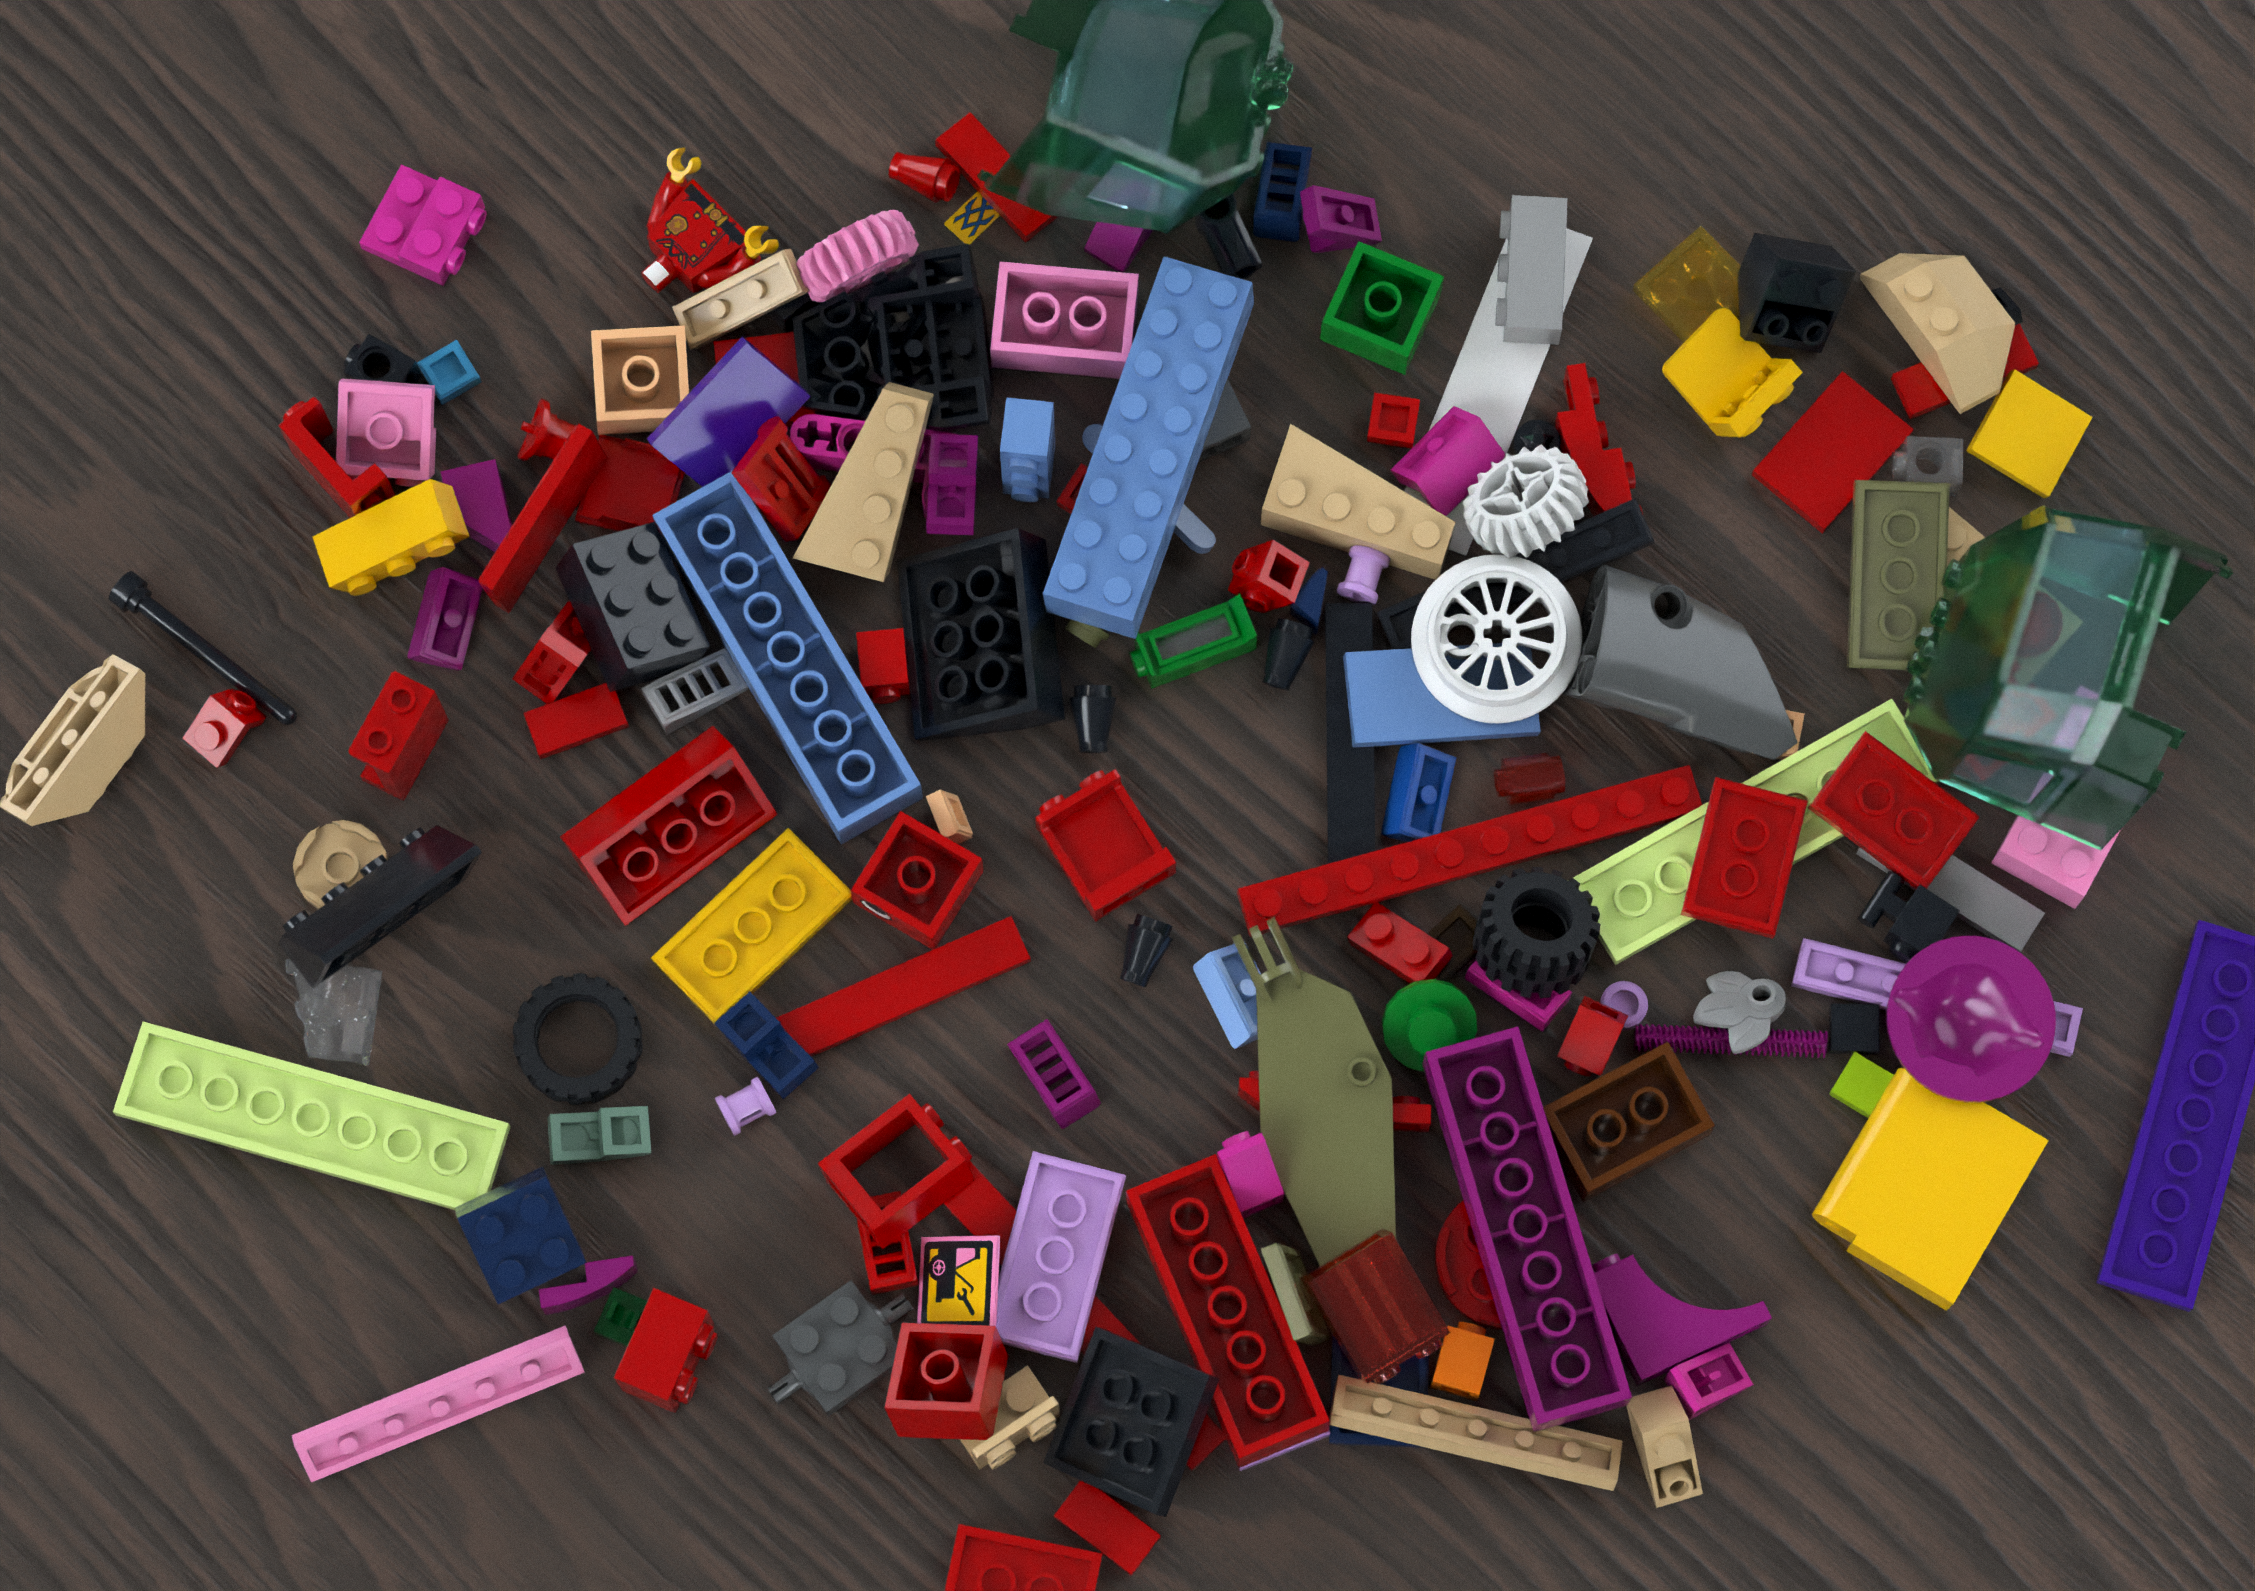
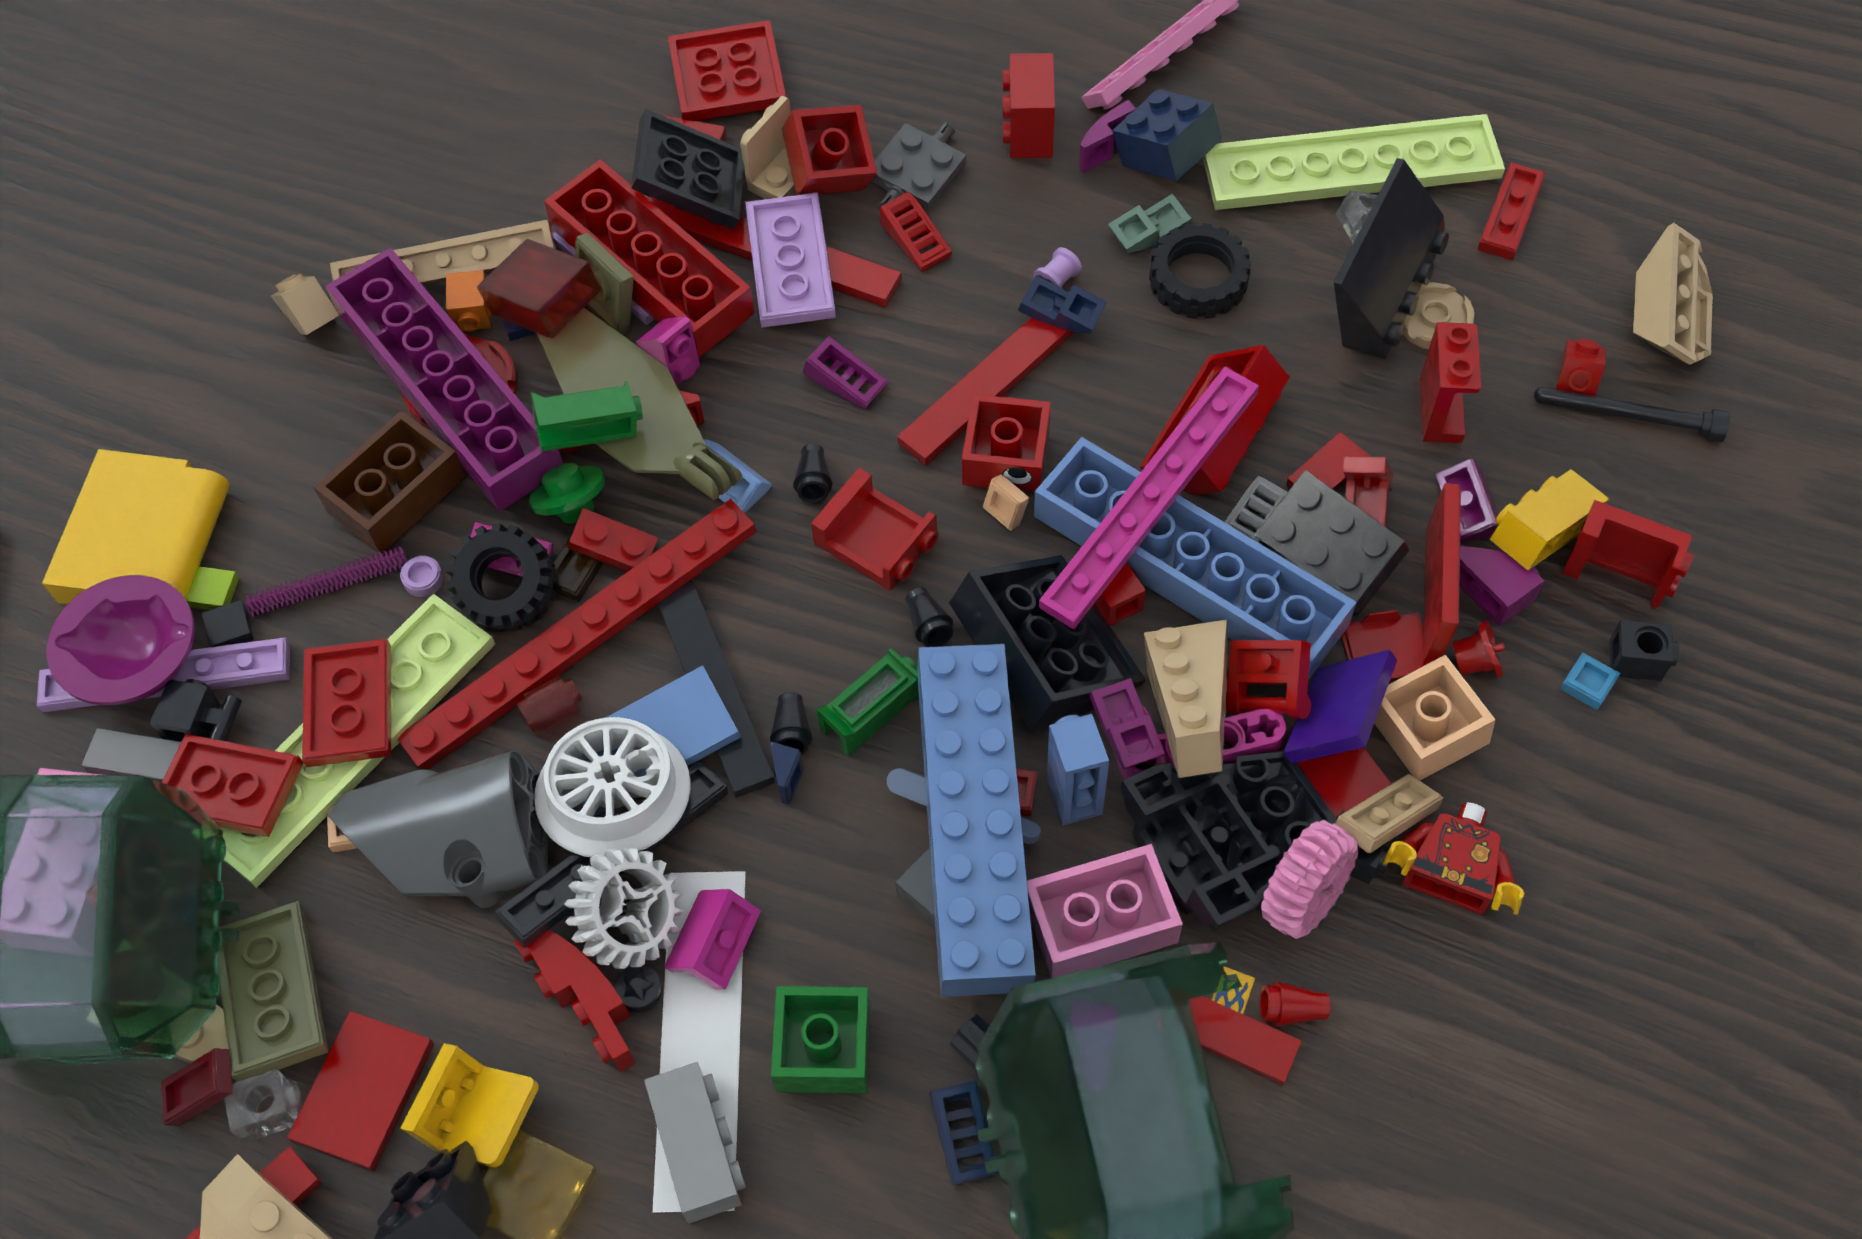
camera: 160 degrees right, 15 degrees down
(163, 974) = (1511, 211): none -> red tile
(386, 427) = (1606, 593): bright pink plate -> none
(424, 224) = (1690, 787): dark pink plate -> none
(620, 1317) = (1069, 133): dark green tile -> none
(752, 926) = (1115, 386): yellow tile -> none
(804, 710) = (1148, 498): none -> dark pink plate
(919, 1200) = (944, 236): red window -> none
(959, 1280) = (850, 219): piece -> none
(1267, 576) = (828, 767): red brick -> none
(1338, 219) = (896, 1115): magenta slope -> none
(1345, 505) = (778, 855): tan wedge -> none
(1363, 574) = (749, 810): lavender bush -> none
(1381, 1059) = (586, 417): none -> green window
(1393, 420) = (774, 953): red plate -> none
(1418, 793) = (639, 661): blue slope -> none
(1591, 1037) = (435, 532): red brick -> none
(1658, 1329) = (321, 370): magenta arch -> none
(1708, 1380) = (283, 350): dark pink slope -> none
(1734, 1007) = (328, 596): light grey plate -> none
(1985, 498) = (196, 1087): none -> dark red tile
(2029, 434) = (170, 1174): yellow tile -> none

